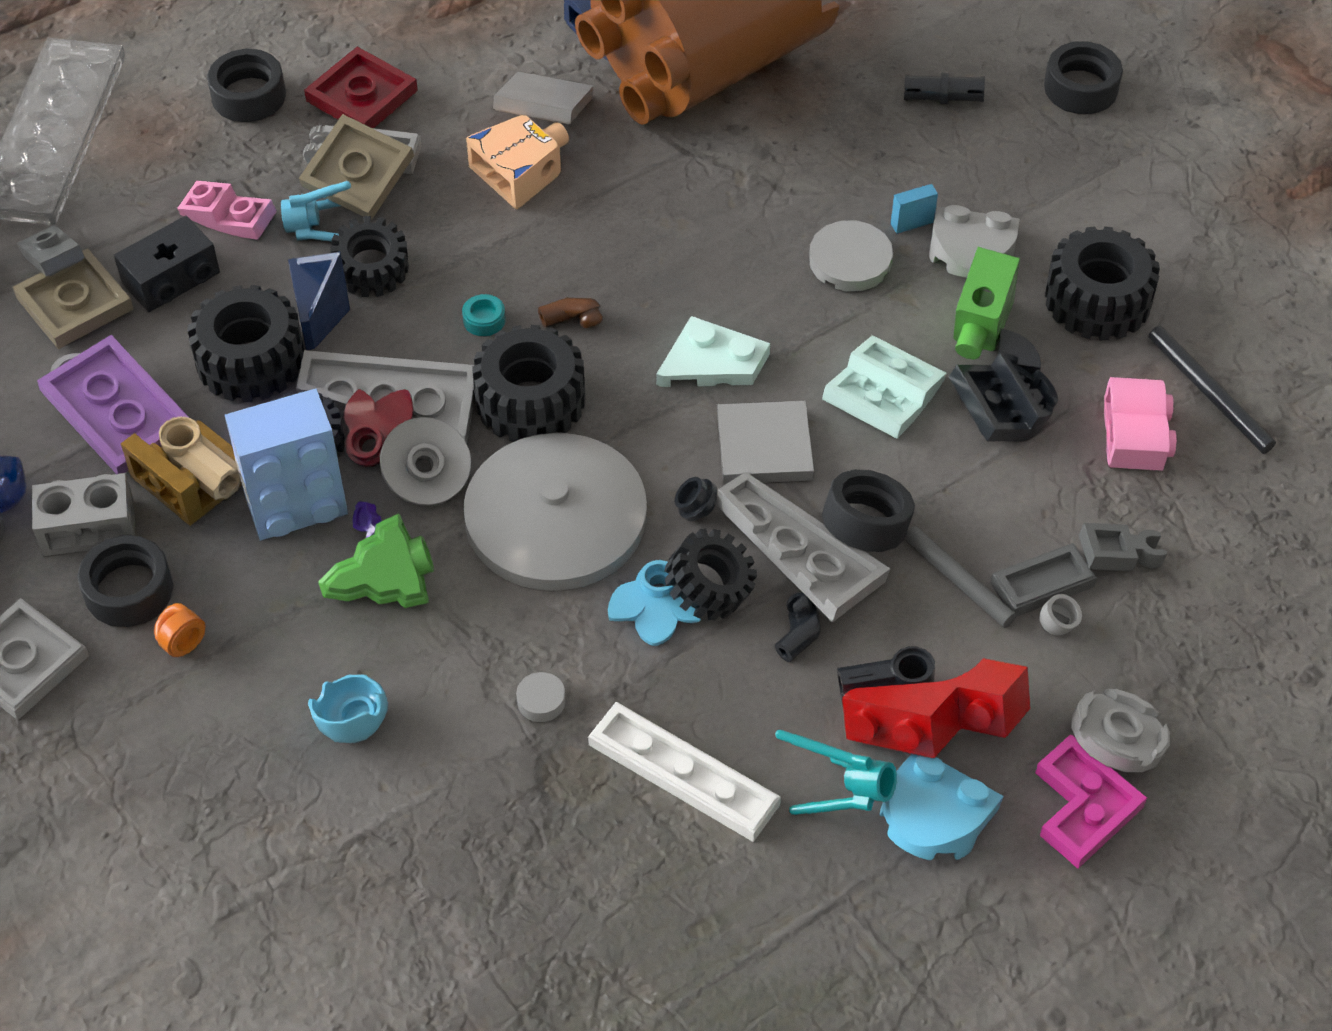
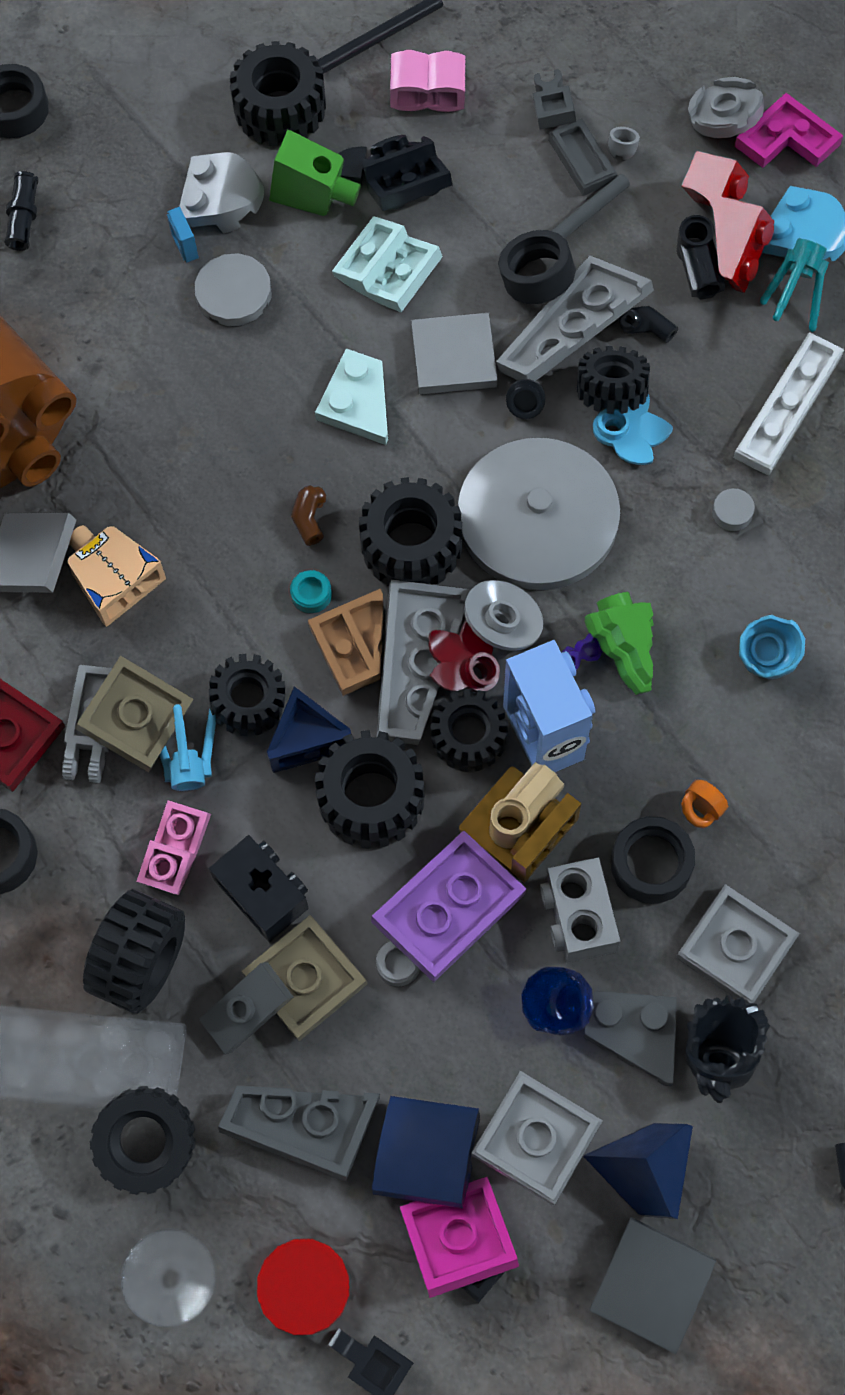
camera: 90 degrees left, 15 degrees up
(113, 158) = (133, 951): none -> black tyre
(417, 335) = (352, 641): none -> medium nougat wing

